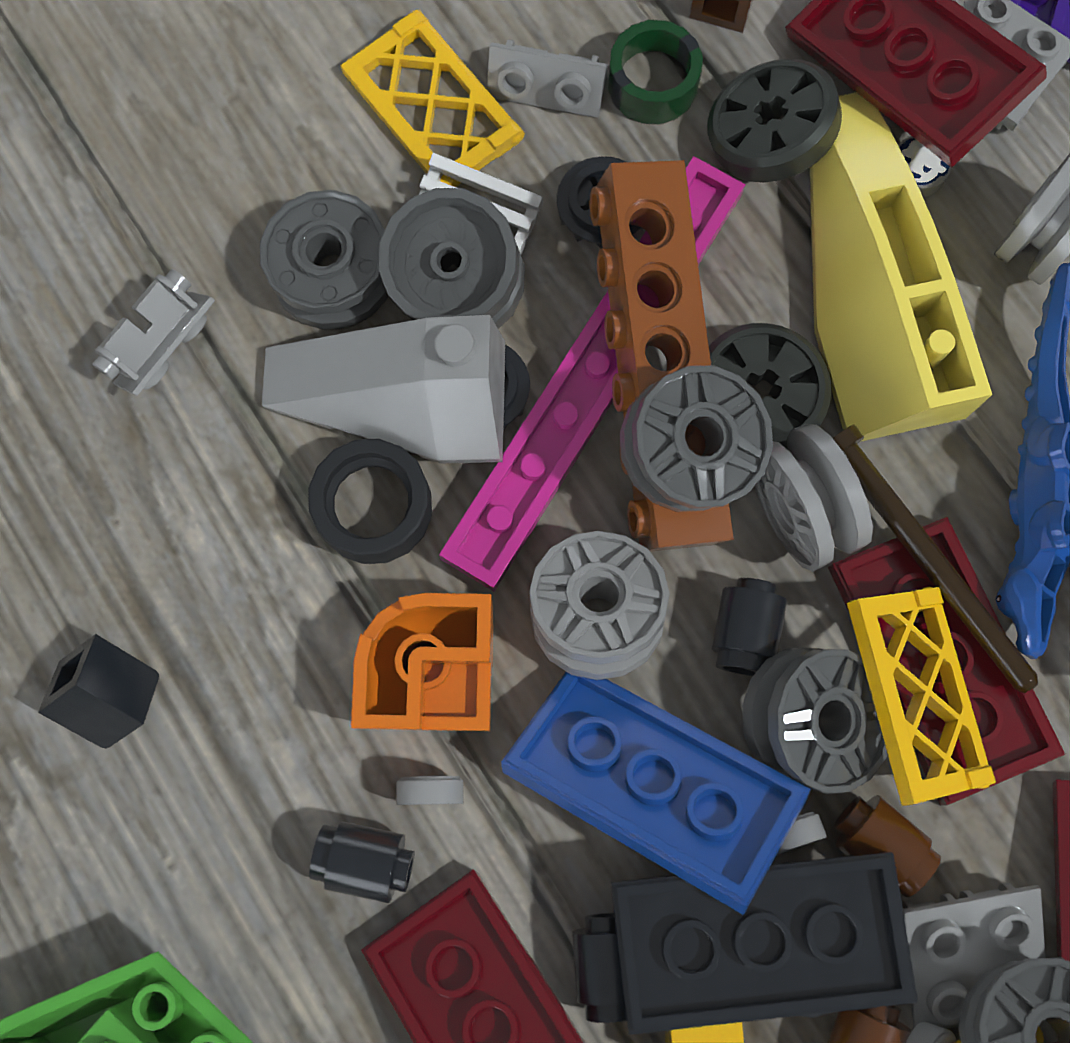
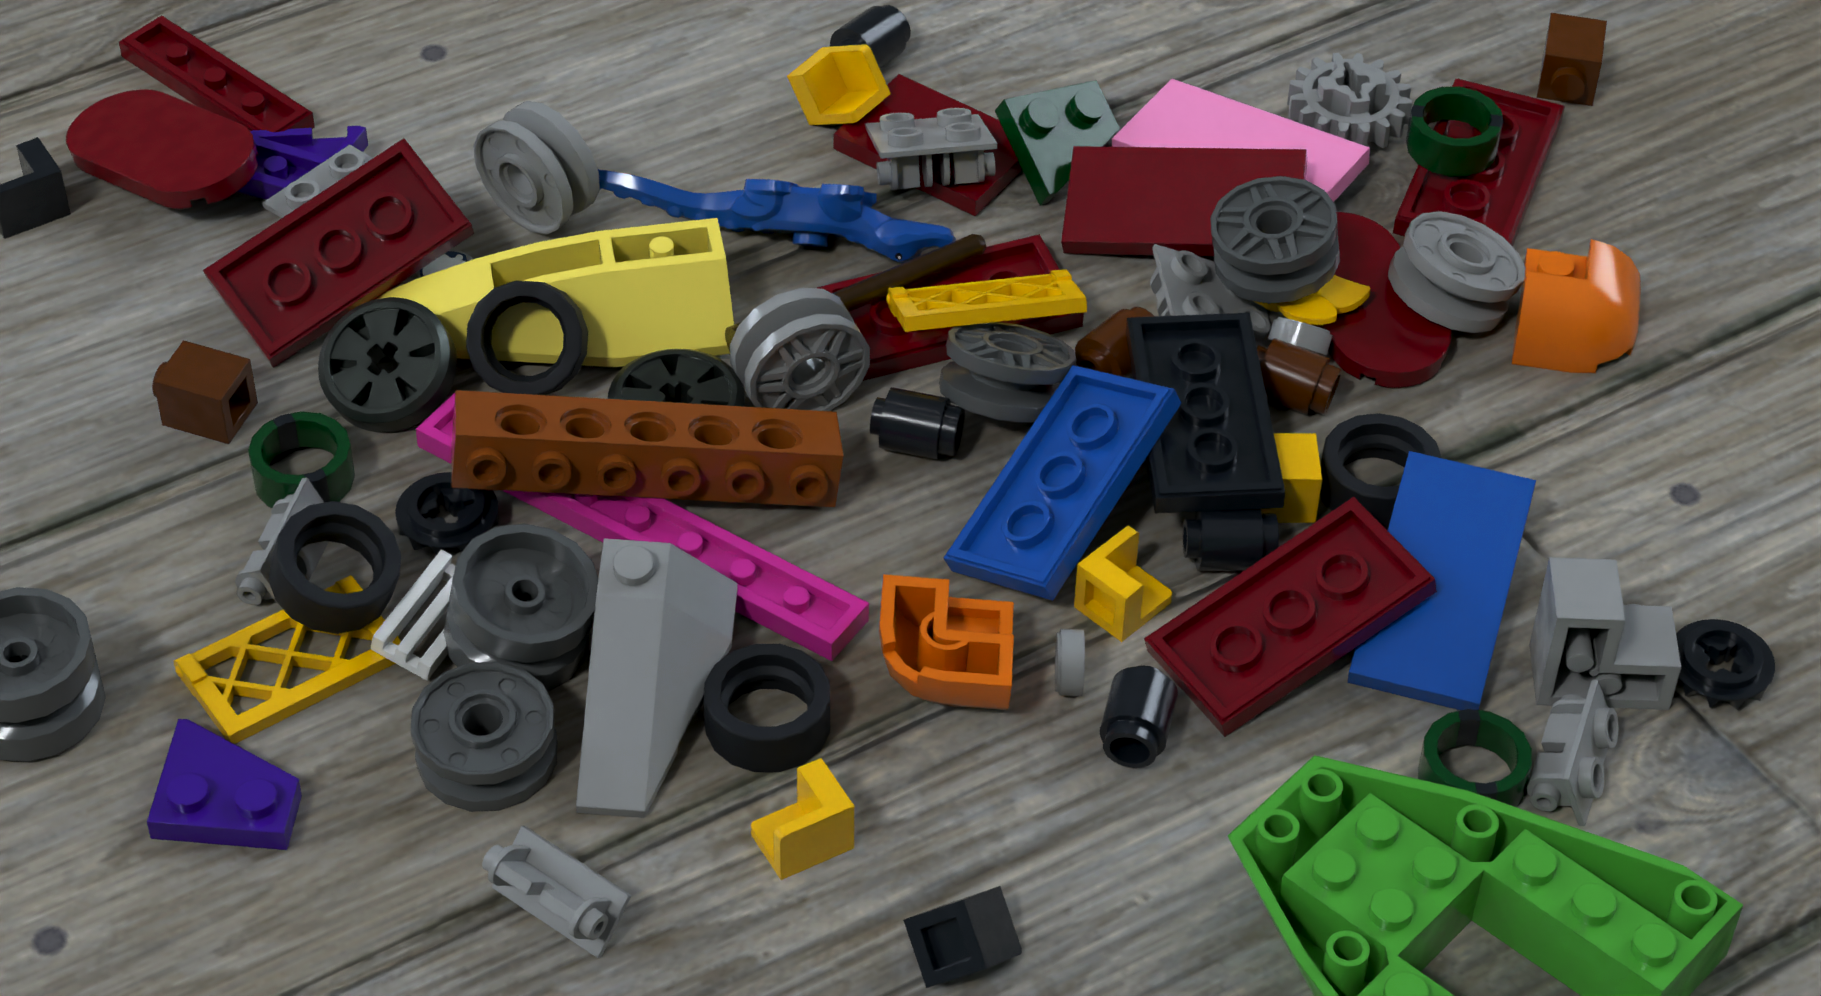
camera: 90 degrees left, 30 degrees down
(234, 544) = (812, 828): none -> yellow panel
(281, 68) = (221, 794): none -> dark purple wing
(455, 76) = (344, 525): none -> black tyre
(538, 849) = (1116, 590): none -> yellow panel
(602, 568) = (891, 519): light grey wheel -> none
(734, 432) = (748, 402): dark grey wheel -> none
(840, 253) = (480, 338): none -> black tyre

